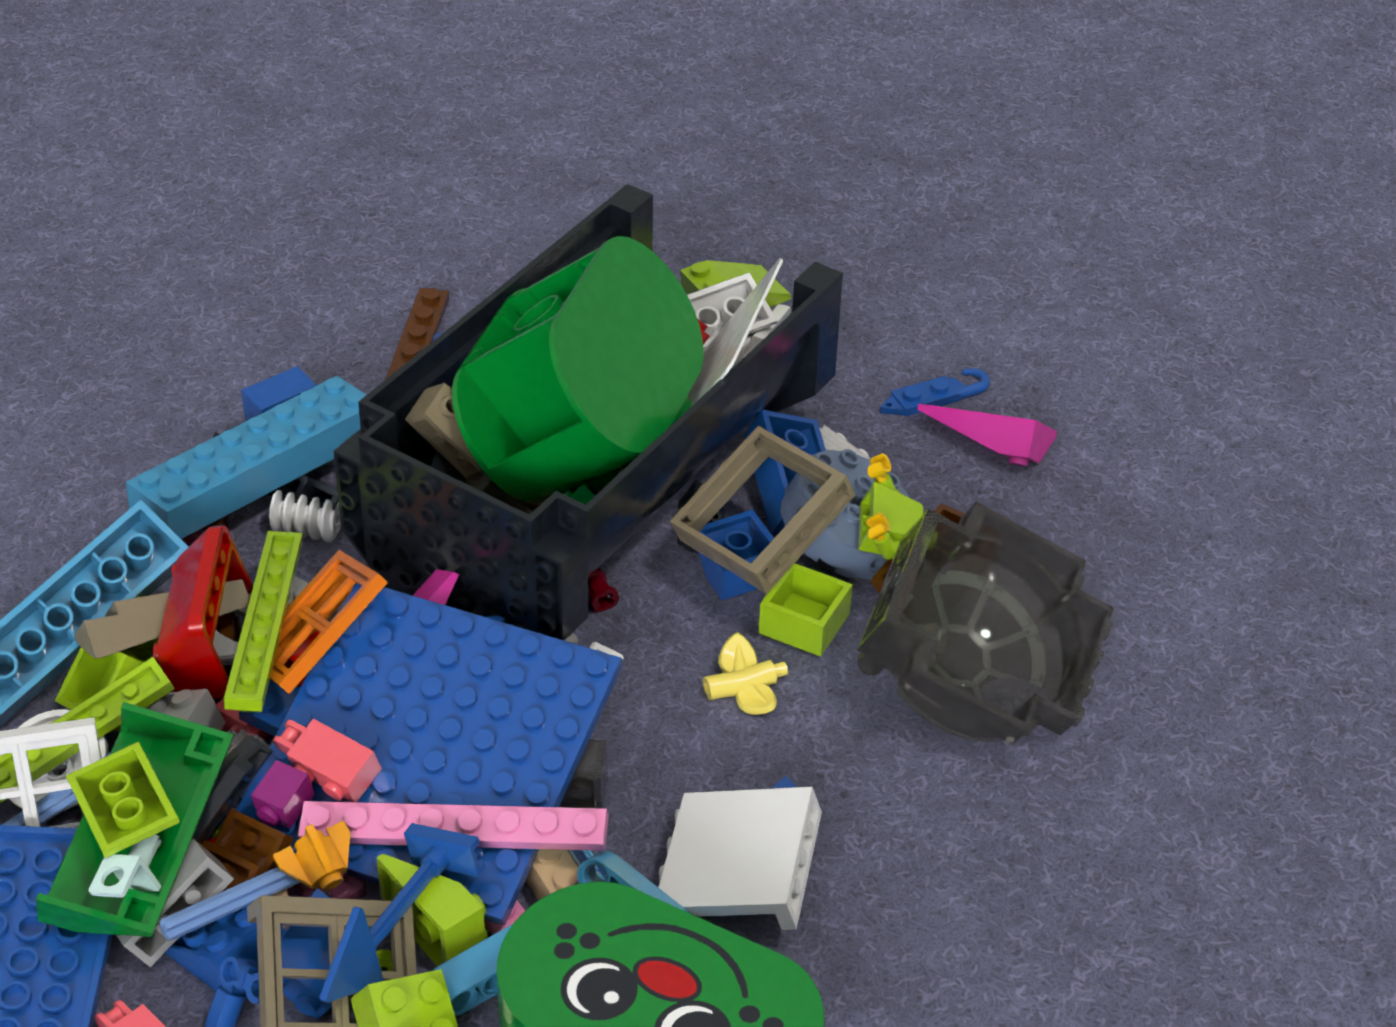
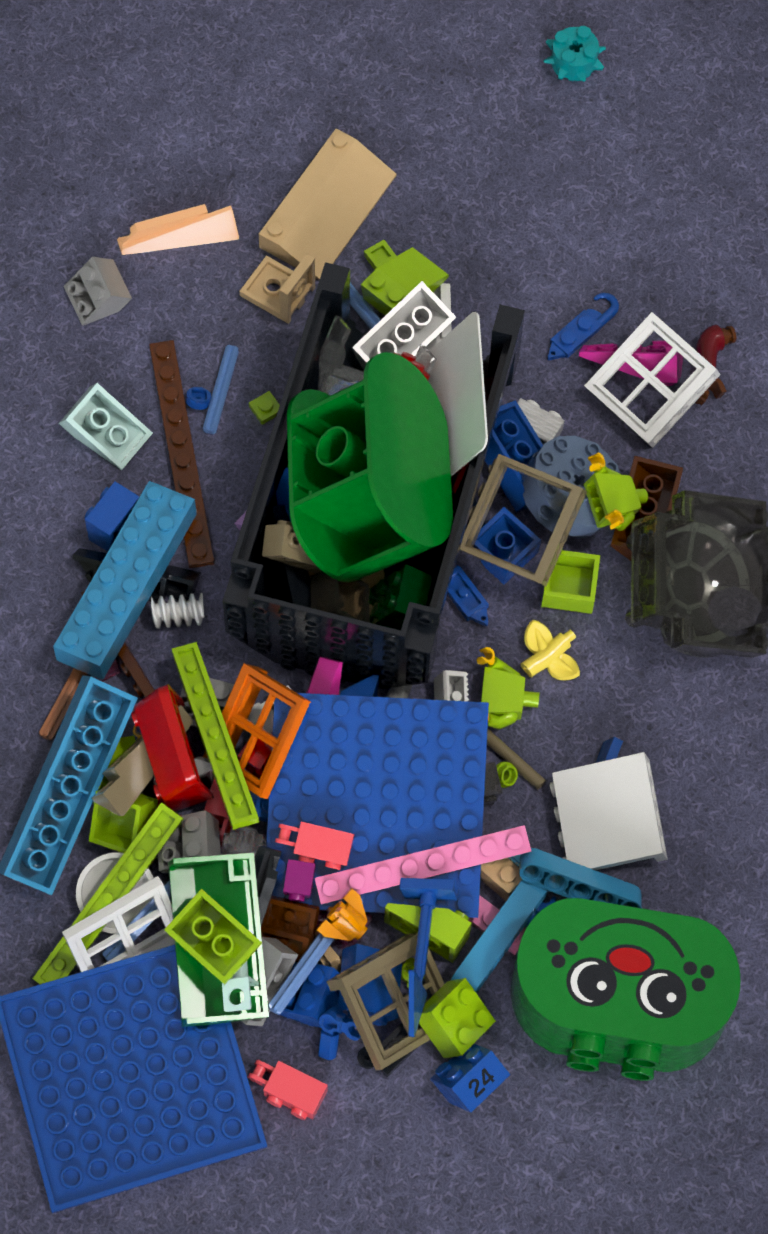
camera: 20 degrees left, 25 degrees up
(325, 337) = (105, 426): none -> light aqua slope
(389, 230) = (97, 290): none -> light grey slope
(510, 206) = (180, 229): none -> light nougat wedge
(632, 784) = (507, 774): none -> lime plate
(636, 765) = (509, 755): none -> dark tan piece
(661, 699) = (504, 691): none -> lime torso
(662, 584) = (467, 597): none -> blue plate
(707, 214) = (327, 203): none -> tan slope
(1019, 471) = (677, 403): none -> white window
(1032, 165) = (574, 53): none -> teal brick
(1084, 440) = (709, 344): none -> piece

